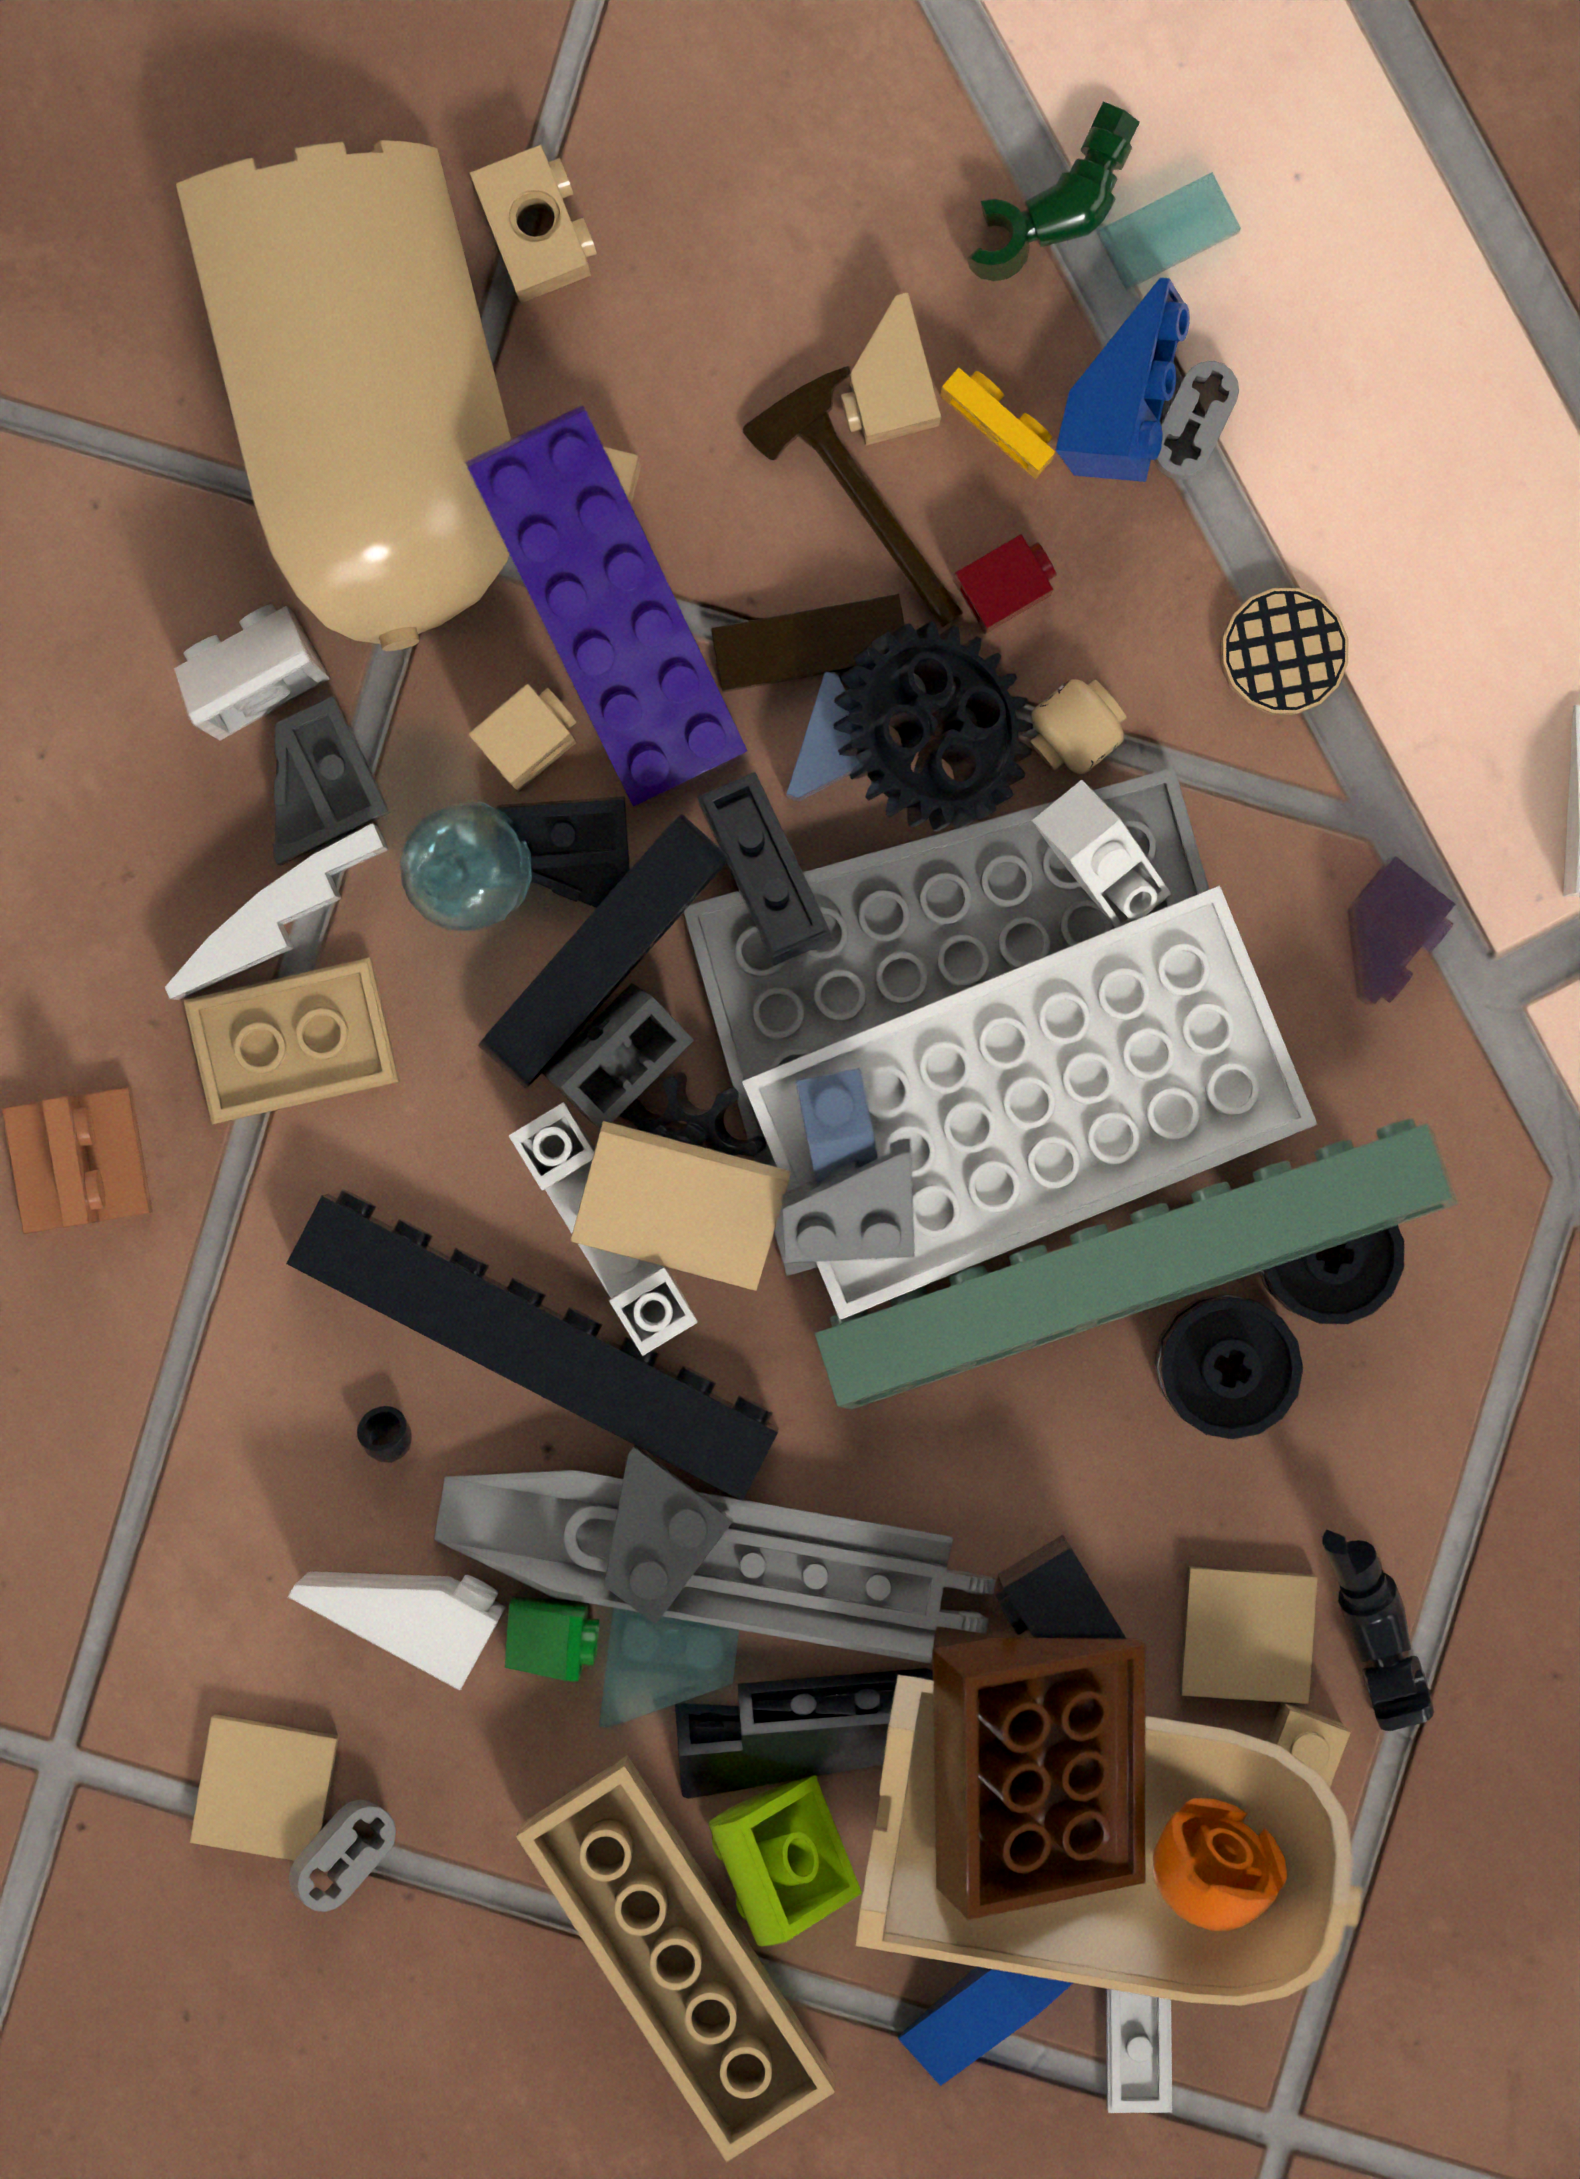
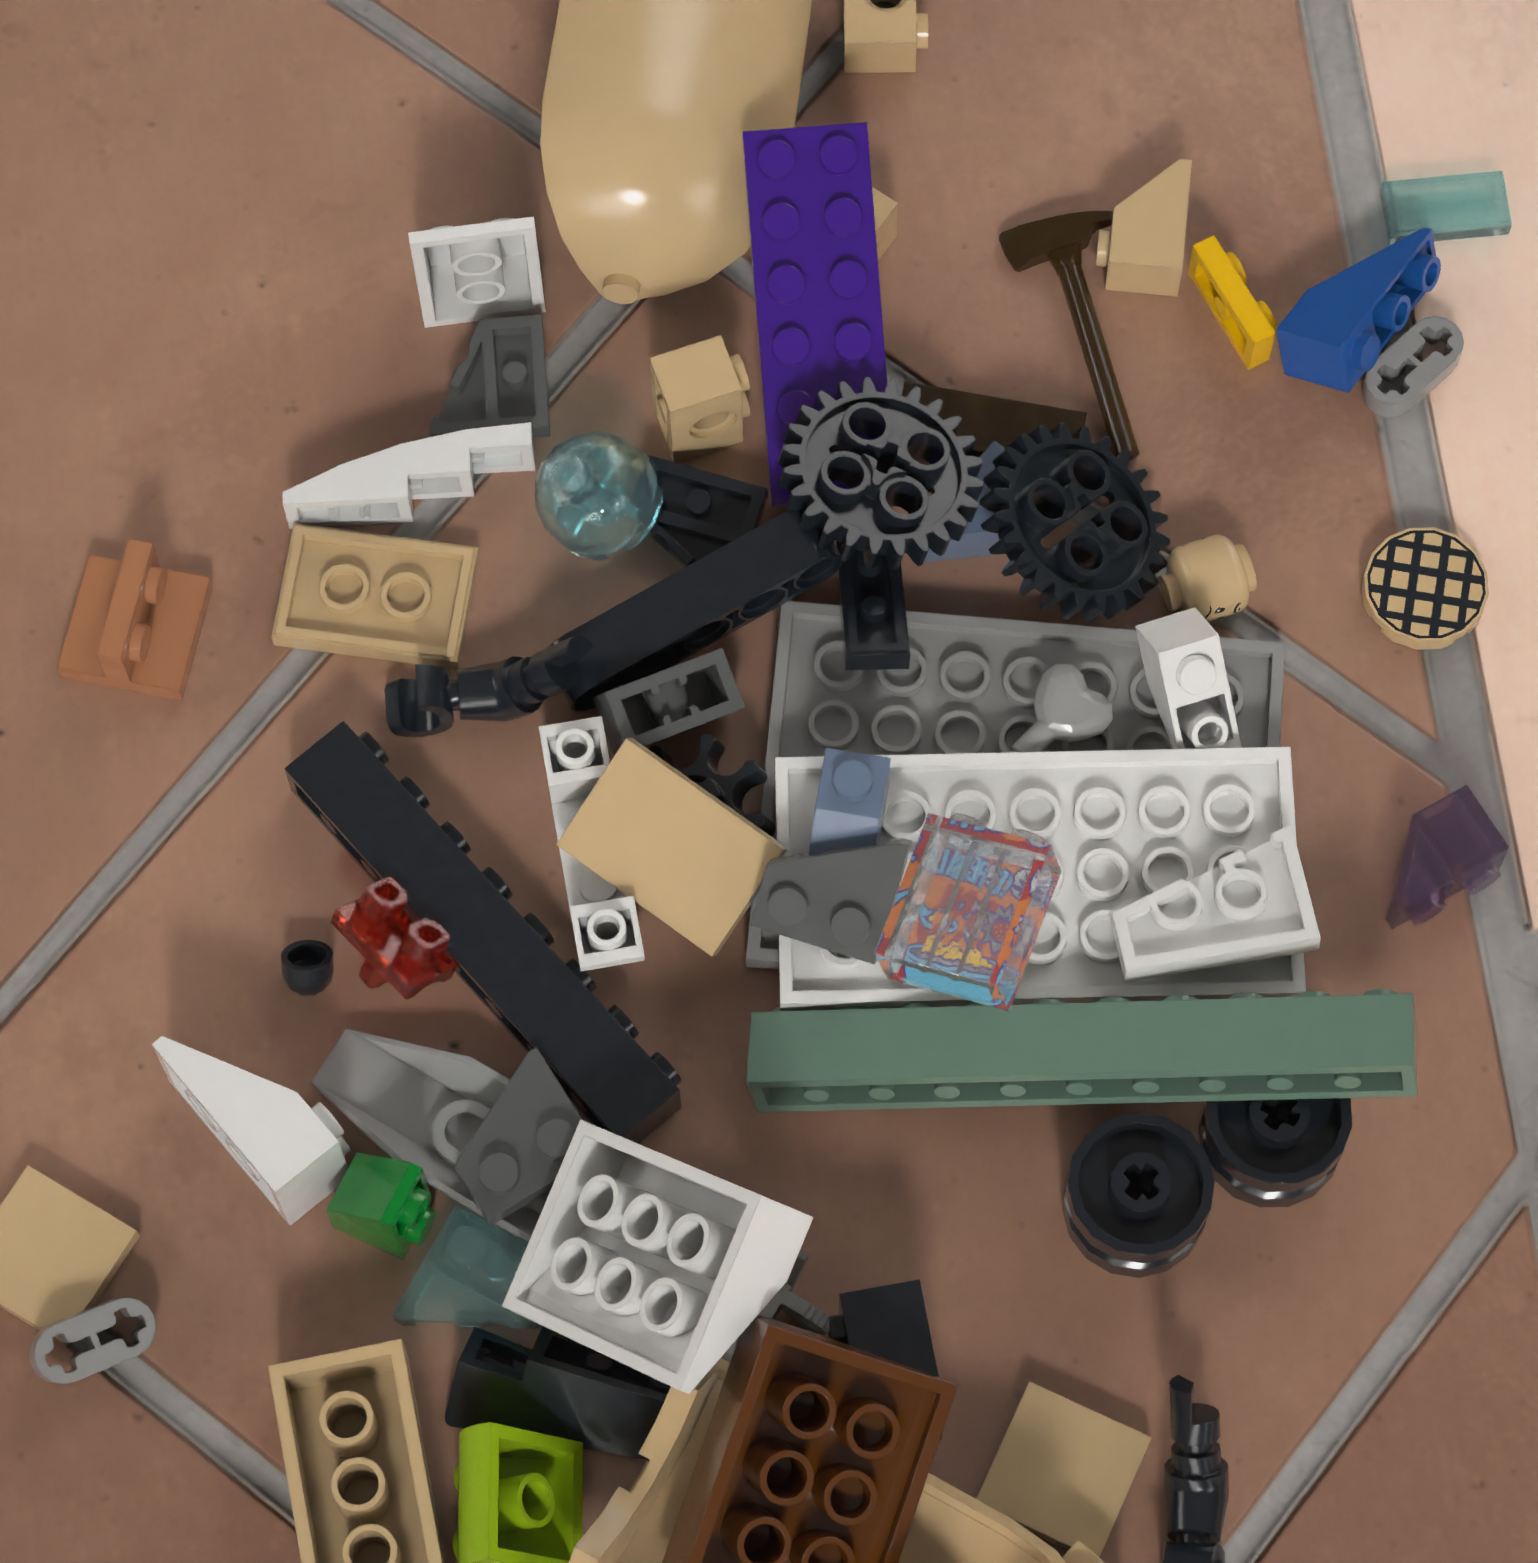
camera: 25 degrees right, 20 degrees down
(435, 1106) = (481, 692): none -> black piece
(458, 1389) = (394, 946): none -> clear red hips
(731, 702) = (880, 473): none -> black gear
(826, 1623) = (652, 1258): none -> white slope
(985, 1178) = (969, 910): none -> clear brick
(993, 924) = (1064, 711): none -> light grey rock
(1005, 582) = (1187, 435): dark red brick -> none
(1067, 209) = (1350, 154): dark green piece -> none
(1219, 1086) = (1230, 915): none -> white wing

